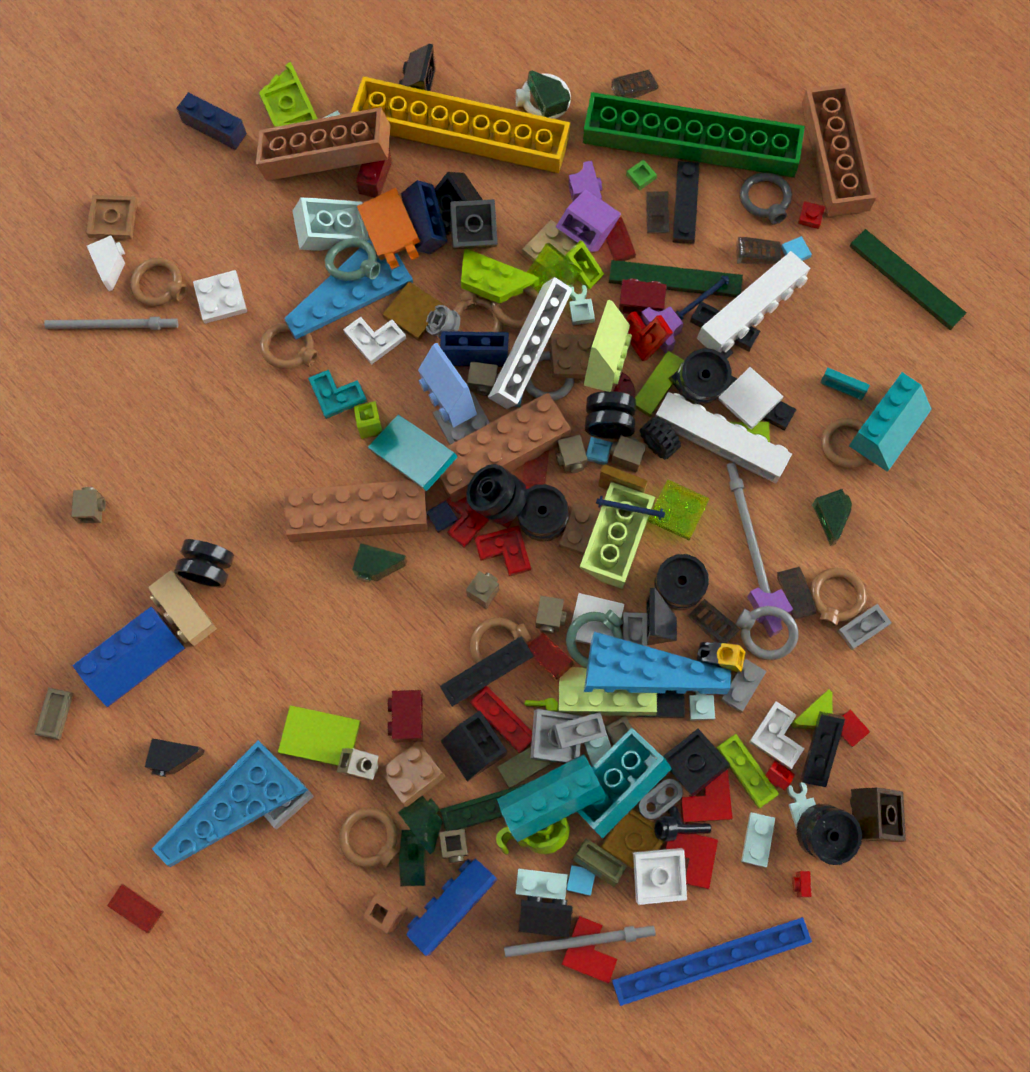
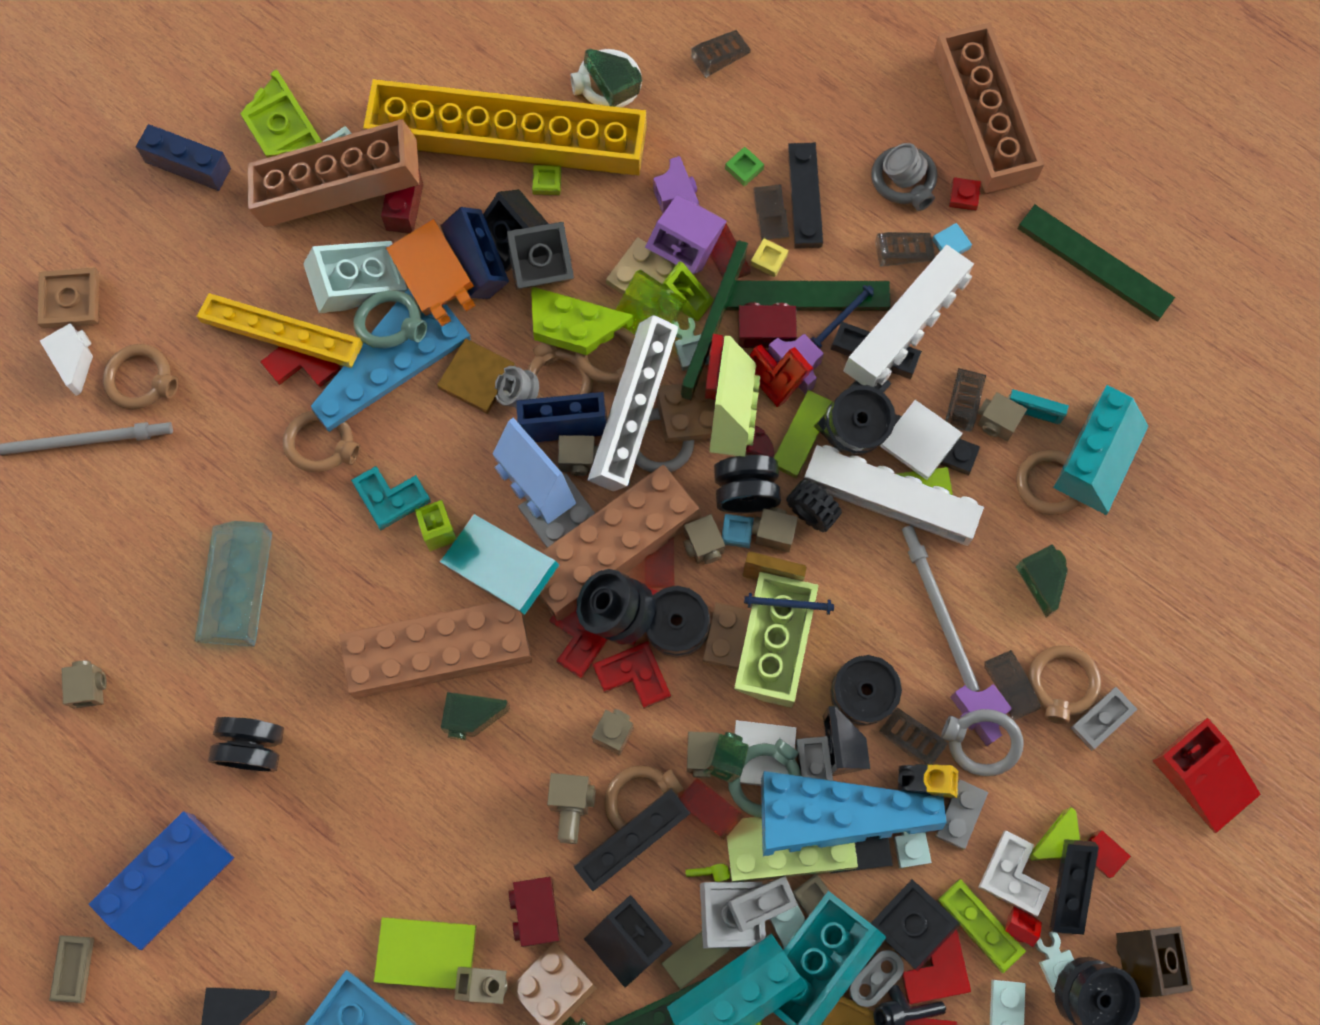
camera: 10 degrees left, 0 degrees up
(181, 608) = (223, 807): tan brick -> none
(210, 444) = (234, 583): none -> clear light blue slope
(220, 296) = (222, 386): white plate -> none
(268, 258) = (280, 330): none -> yellow plate
(282, 278) = (285, 362): none -> red tile
(374, 344) = (432, 425): white plate -> none
(420, 68) = (444, 61): black slope -> none
(442, 516) = (547, 641): clear blue tile -> none
(444, 633) = (571, 798): none -> dark tan brick
(487, 168) = (546, 180): none -> lime tile
(502, 719) = (660, 899): red tile -> none
(566, 617) = (727, 757): none -> clear green slope
(601, 288) = (714, 320): none -> dark green tile
(601, 304) = (714, 366): none -> red tile
(651, 246) = (769, 257): none -> light yellow plate
(681, 508) = (852, 592): clear neon green plate -> none
(693, 134) = (803, 108): green brick -> none
(766, 187) = (905, 165): none -> light grey wheel
(783, 384) = (960, 416): none -> clear smoke slope
(815, 387) = (1000, 416): none -> dark tan brick
(940, 679) = (1208, 774): none -> red slope

